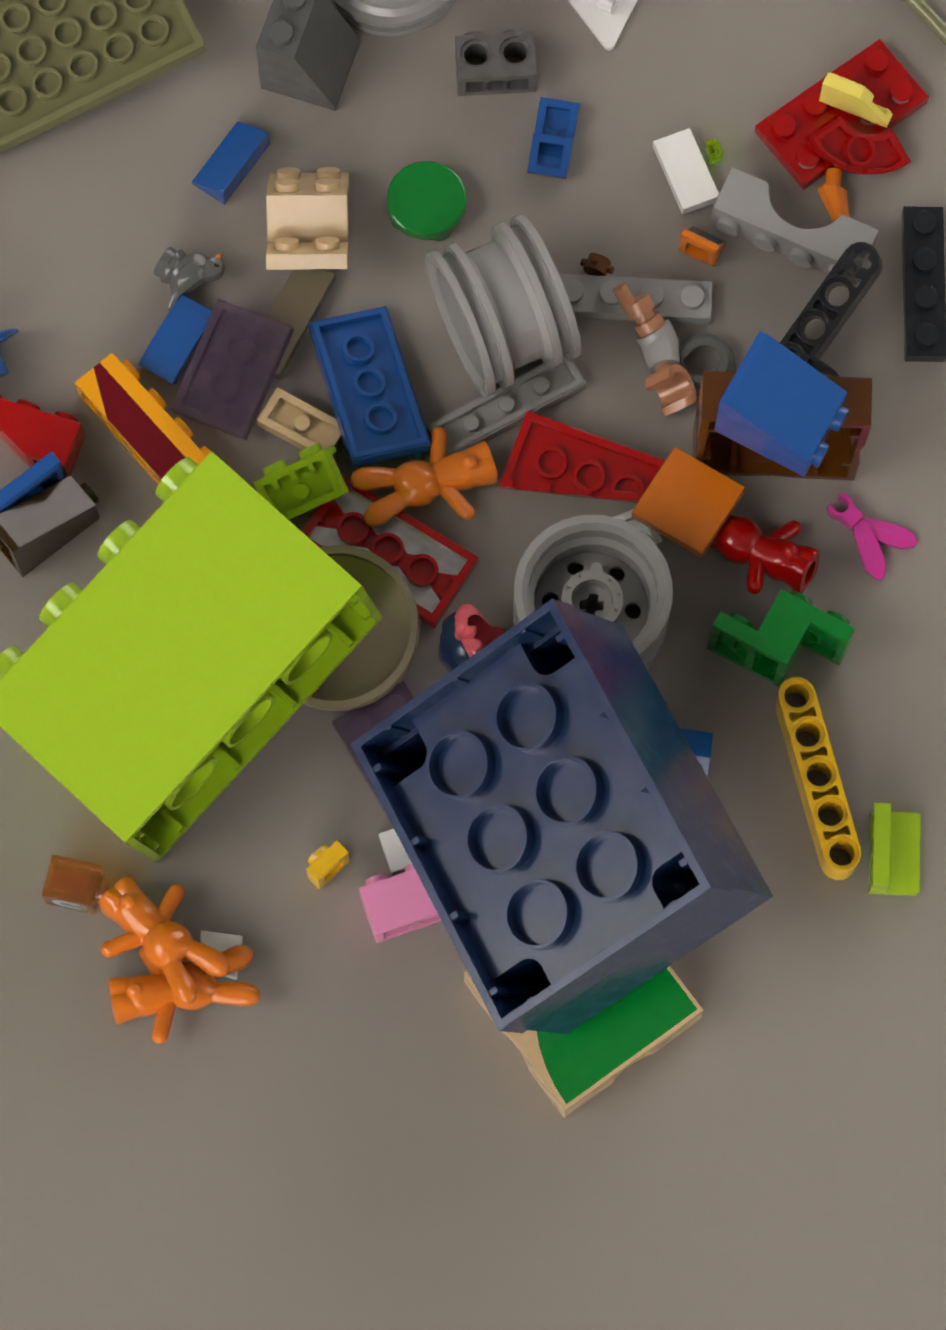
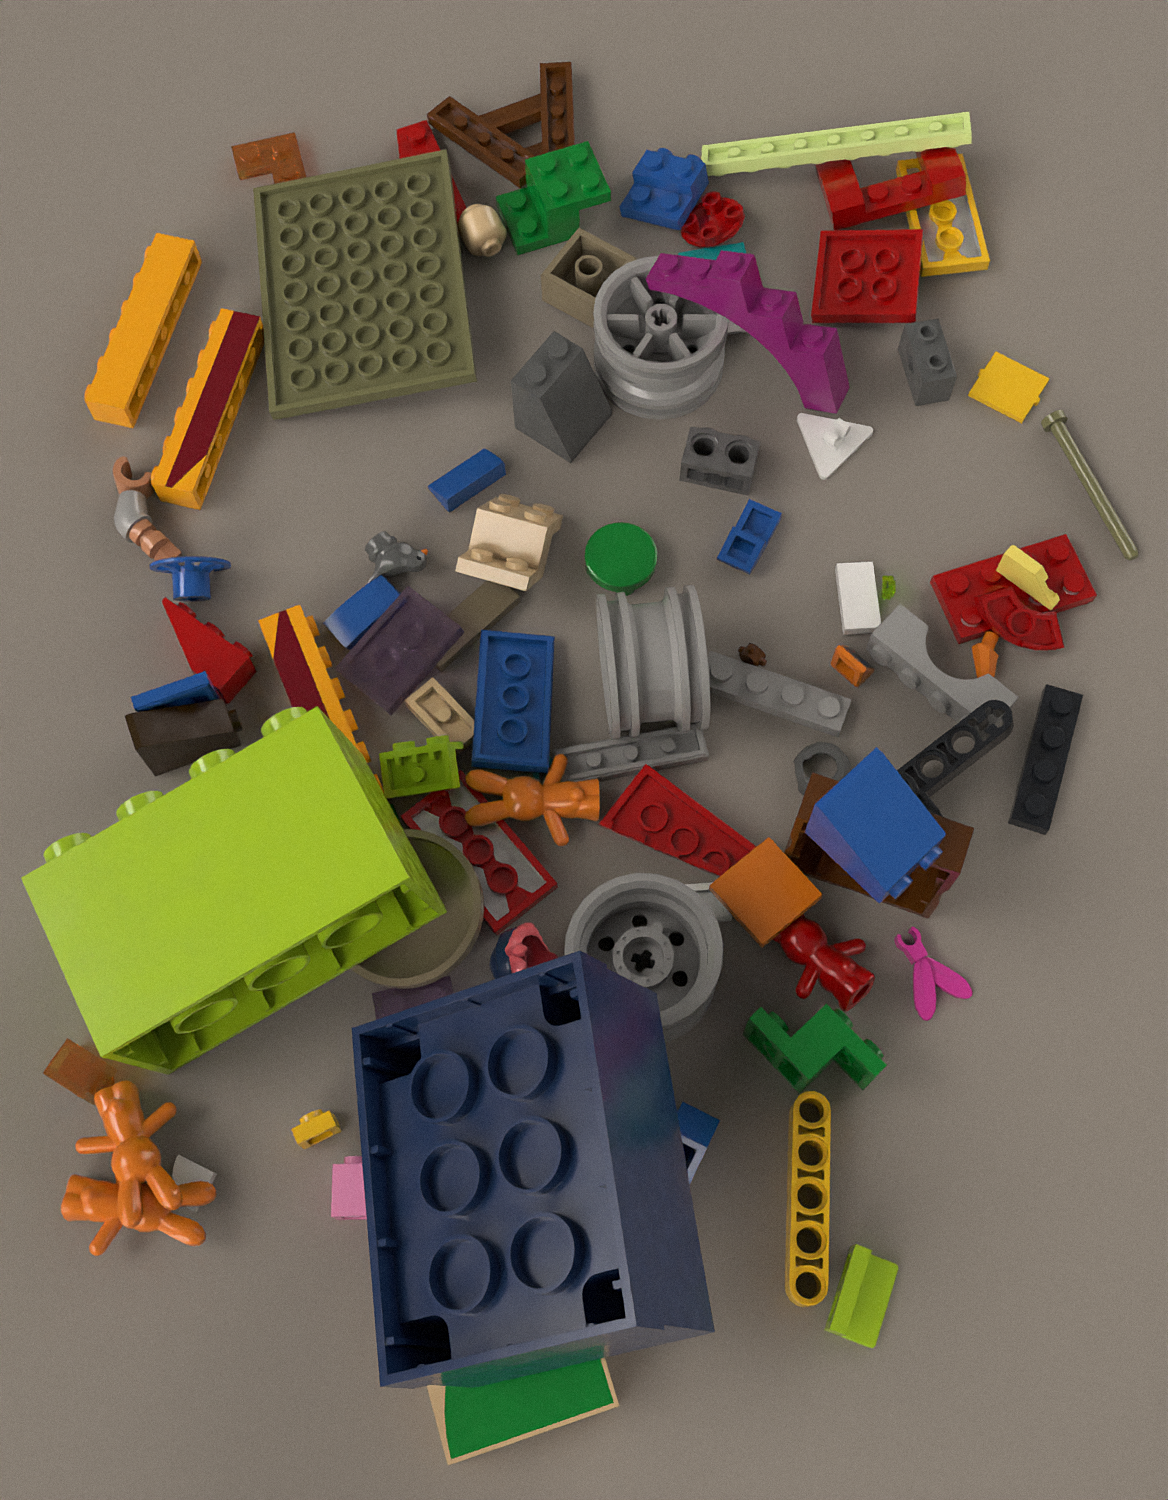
camera: 20 degrees right, 5 degrees down
(660, 351) = (784, 747): nougat piece -> none

